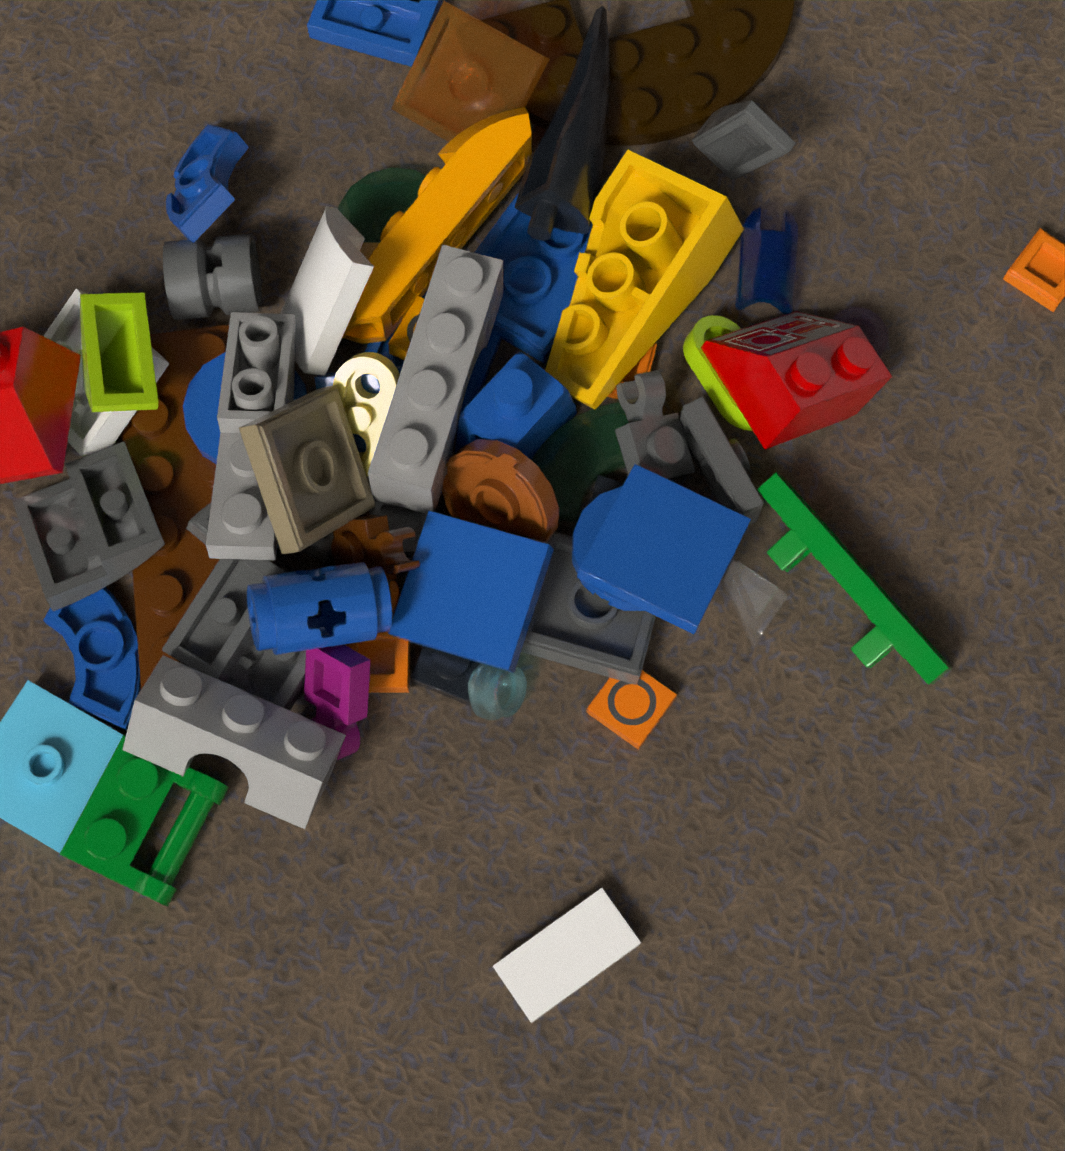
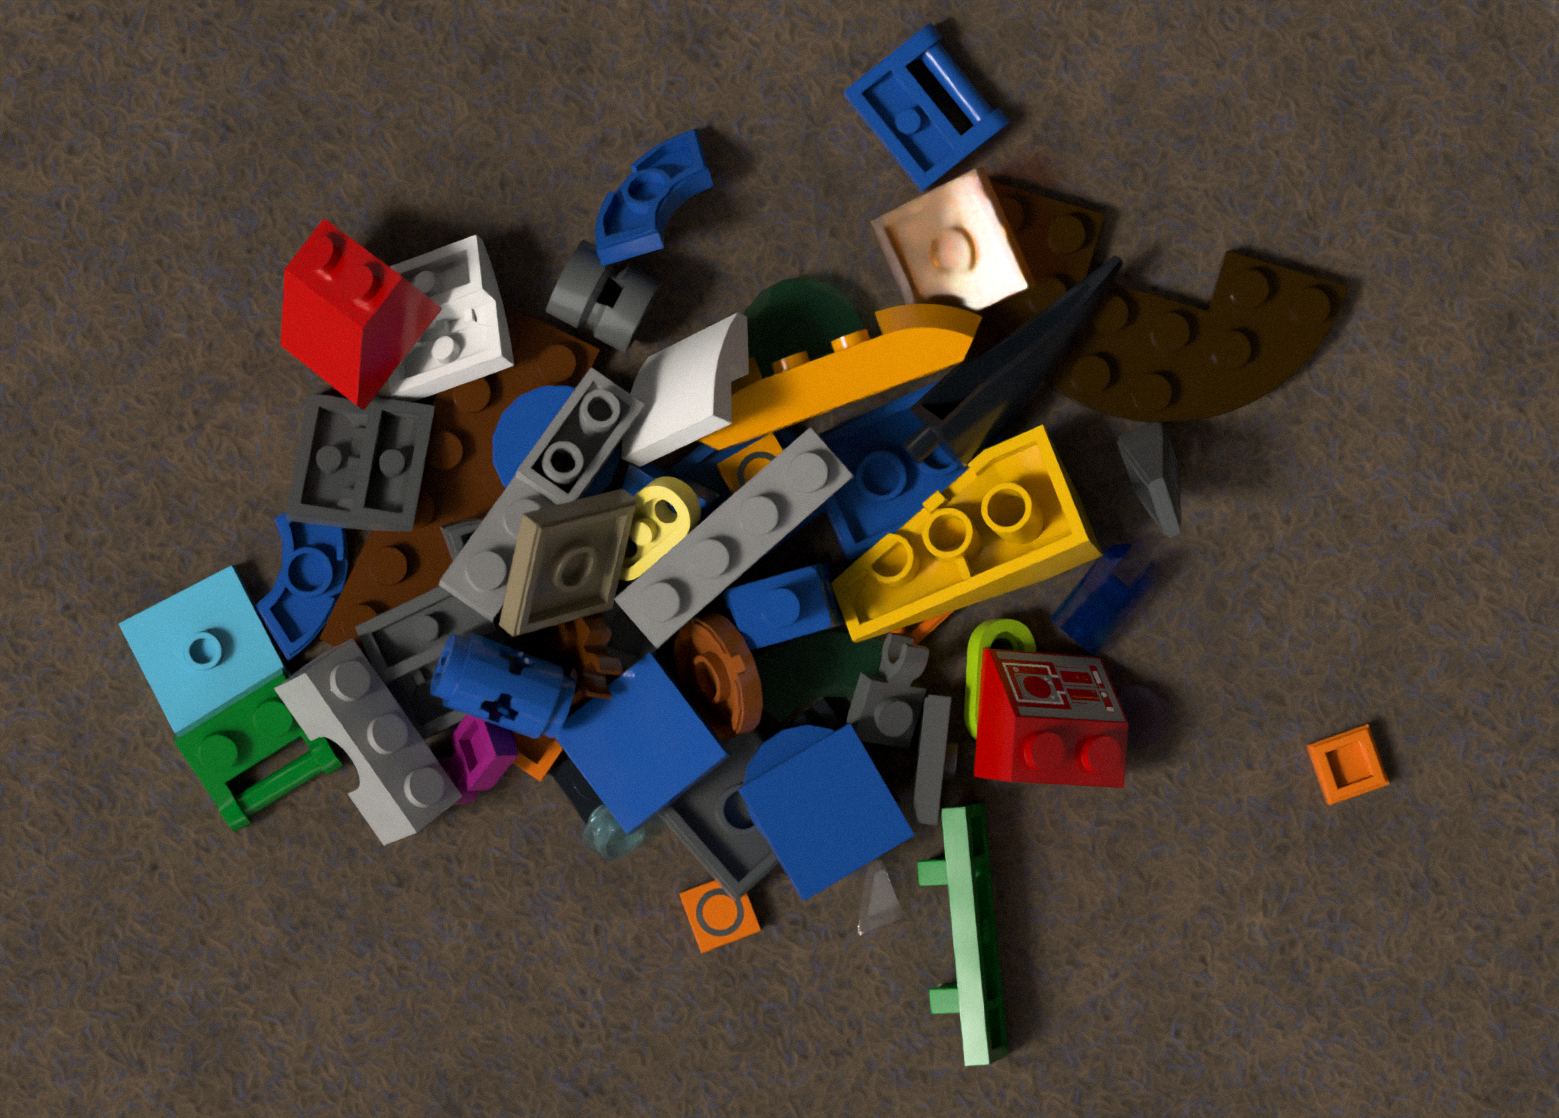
camera: 25 degrees right, 15 degrees up
(117, 352) = (470, 339): lime slope -> none
(566, 955) = (531, 1080): white tile -> none

